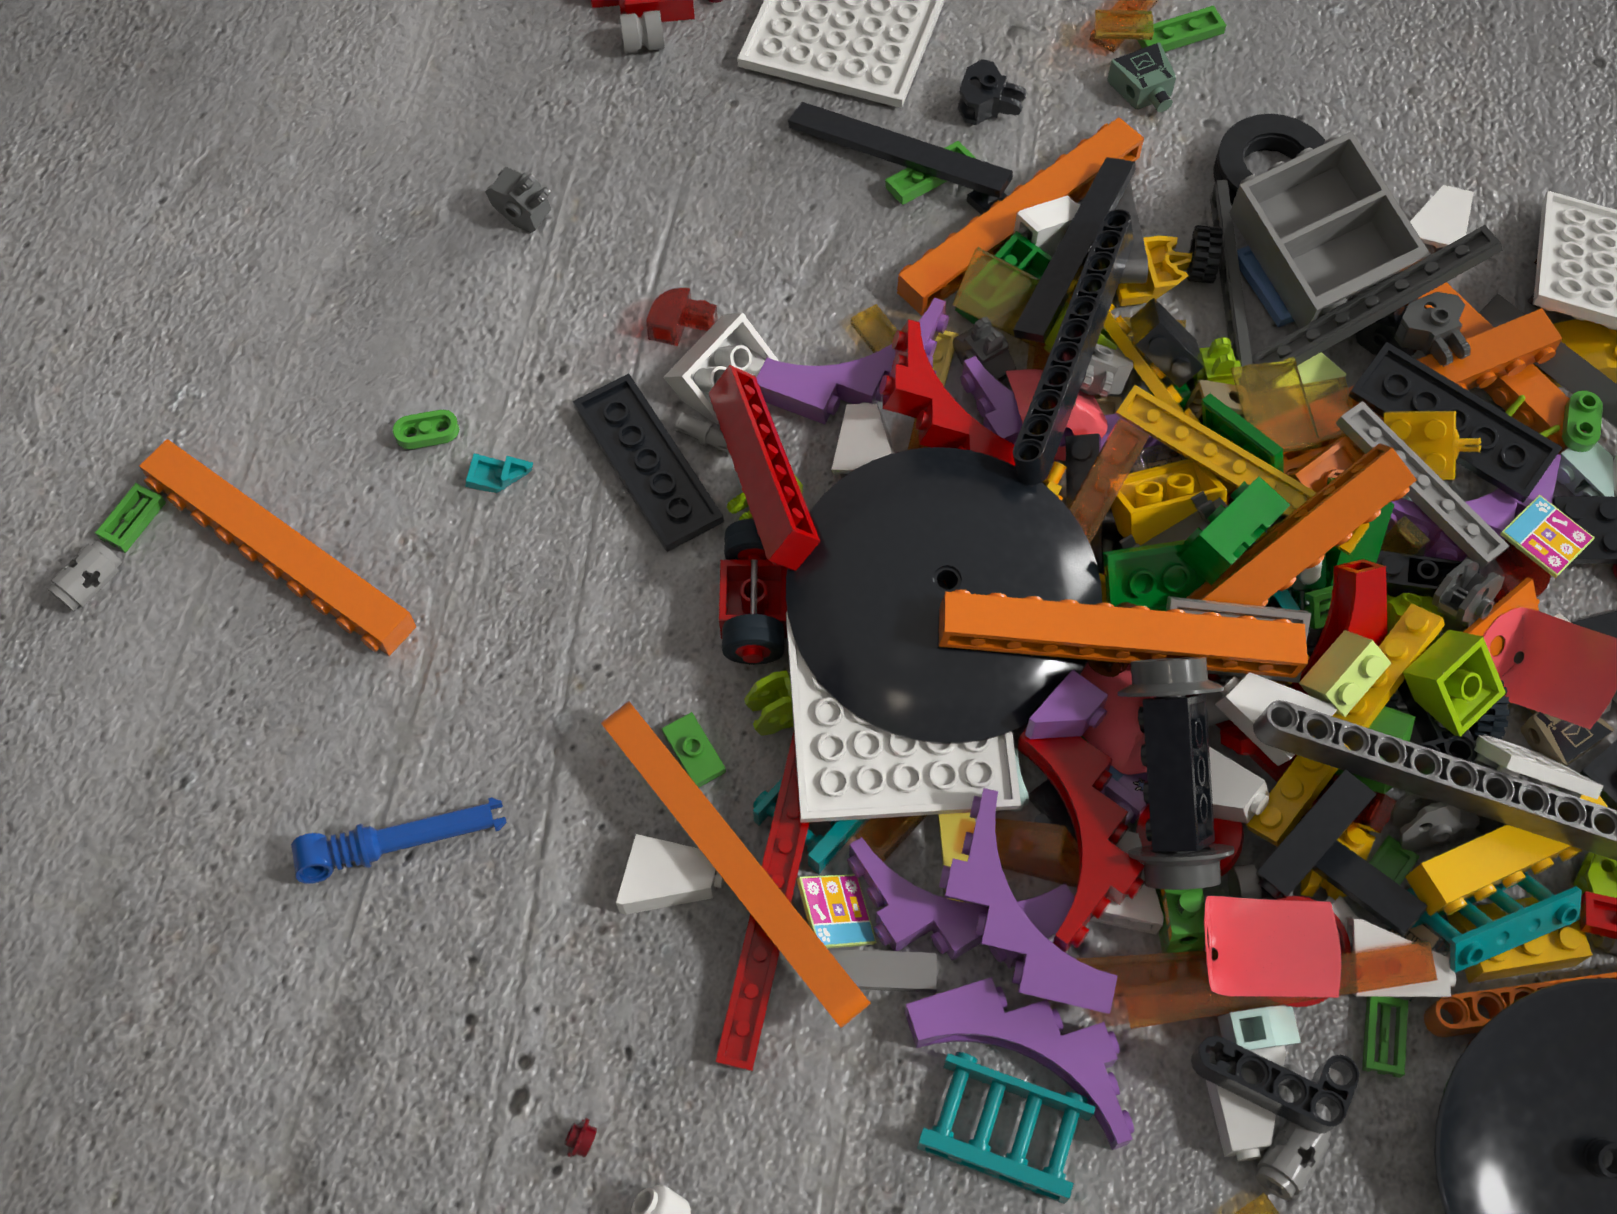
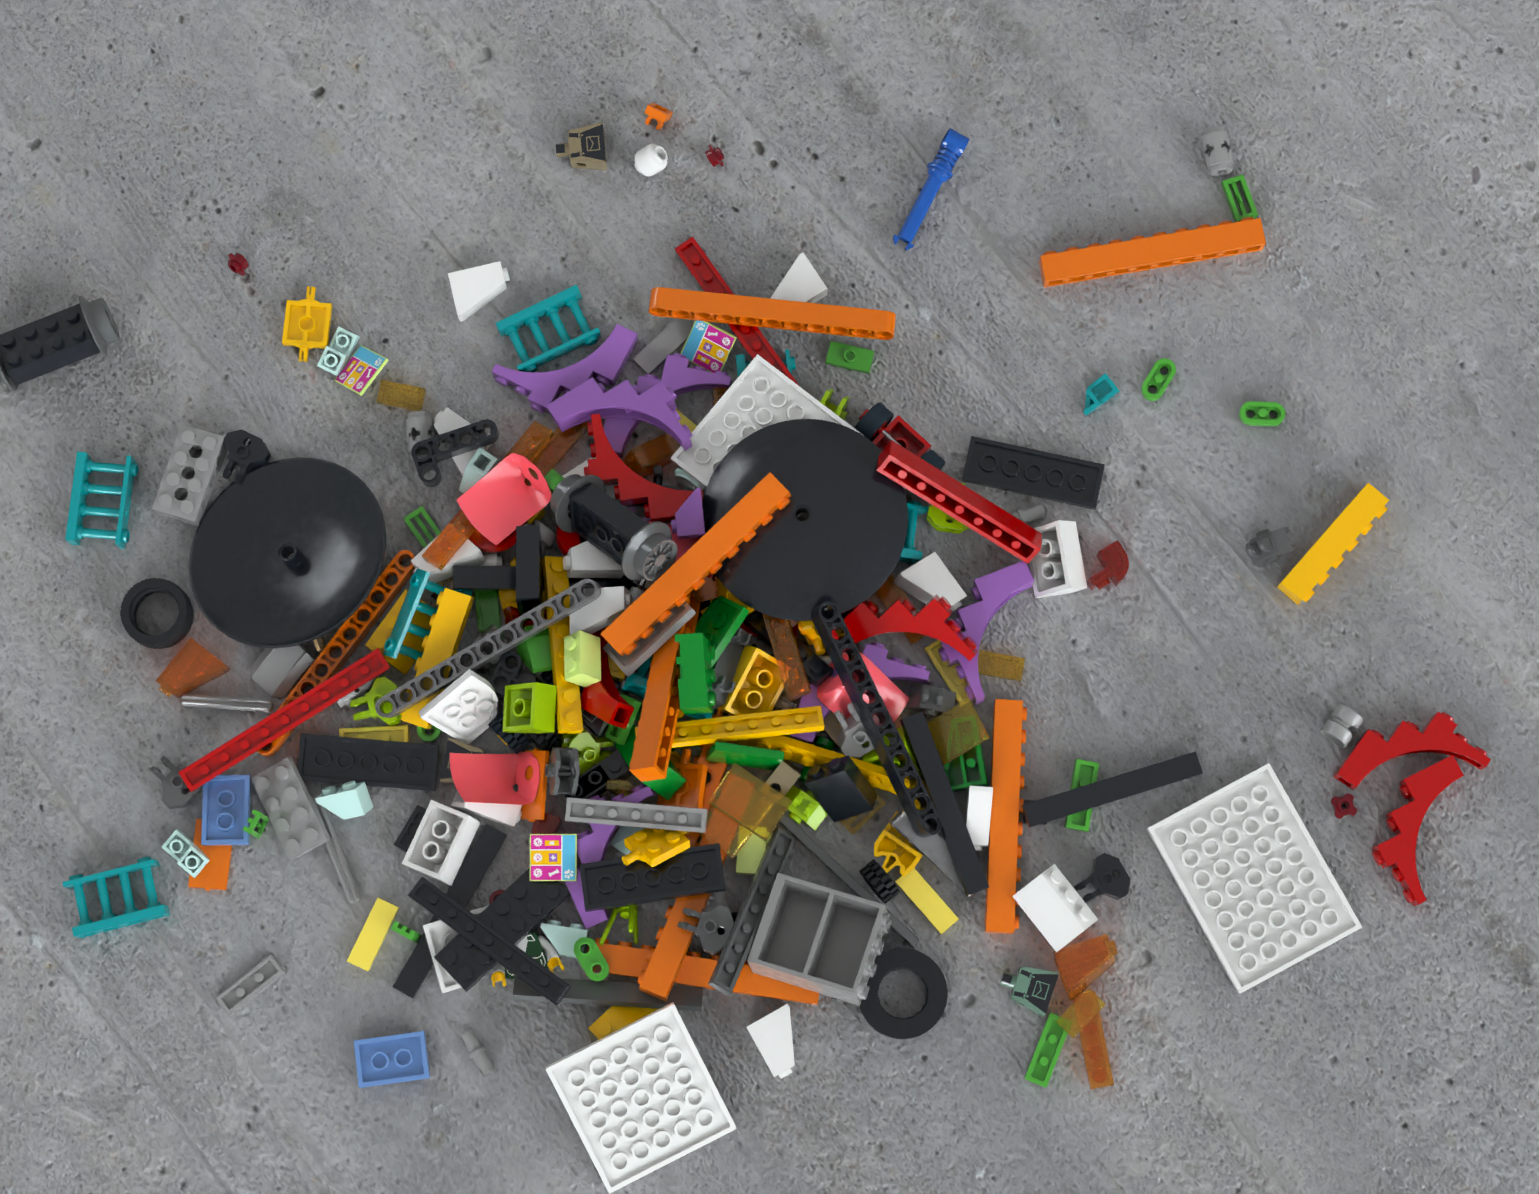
camera: 135 degrees right, 15 degrees up
(379, 315) = (1261, 413): none -> bright green plate
(460, 159) = (1333, 543): none -> yellow brick
(1059, 105) = (1055, 907): none -> white slope
(1079, 53) = (1084, 963): none -> clear orange slope
(1169, 210) = (927, 901): none -> light yellow tile

